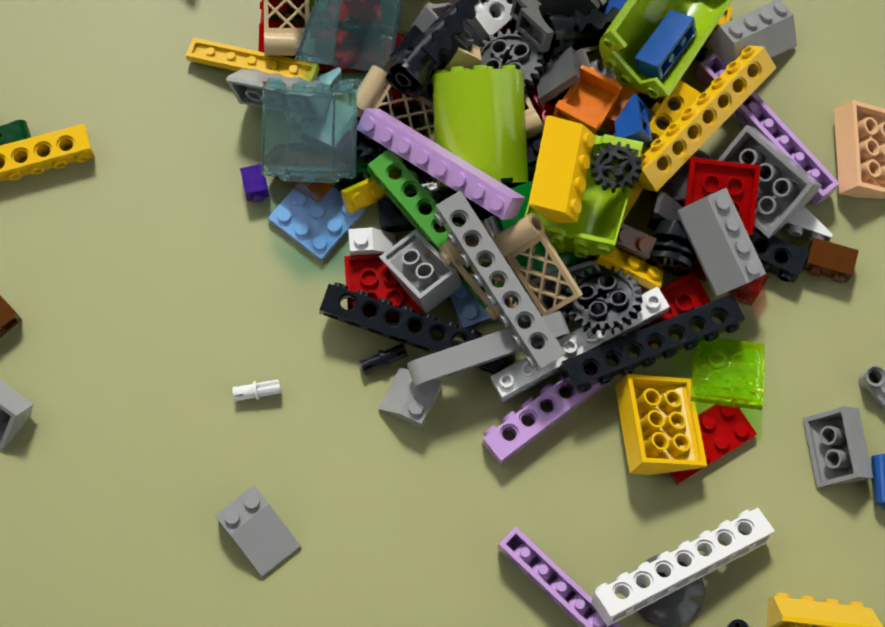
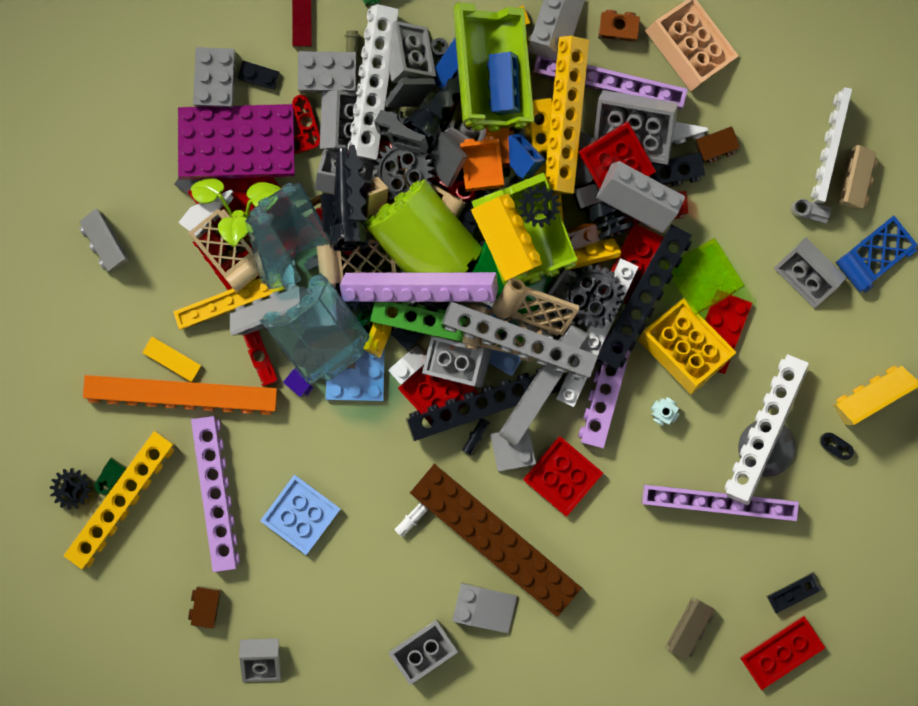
camera: 35 degrees left, 15 degrees up
(128, 155) = (218, 561): none -> lavender brick
(139, 113) = (180, 393): none -> orange brick
(154, 305) = (300, 514): none -> light blue plate
(157, 79) = (171, 359): none -> yellow tile
(161, 525) = (423, 651): none -> light grey brick
(235, 149) = (265, 368): none -> red piece
(323, 473) = (495, 540): none -> reddish brown brick
(439, 461) = (563, 476): none -> red plate
(588, 480) = (657, 409): none -> light aqua brick
(813, 100) = (608, 30): none -> dark orange brick

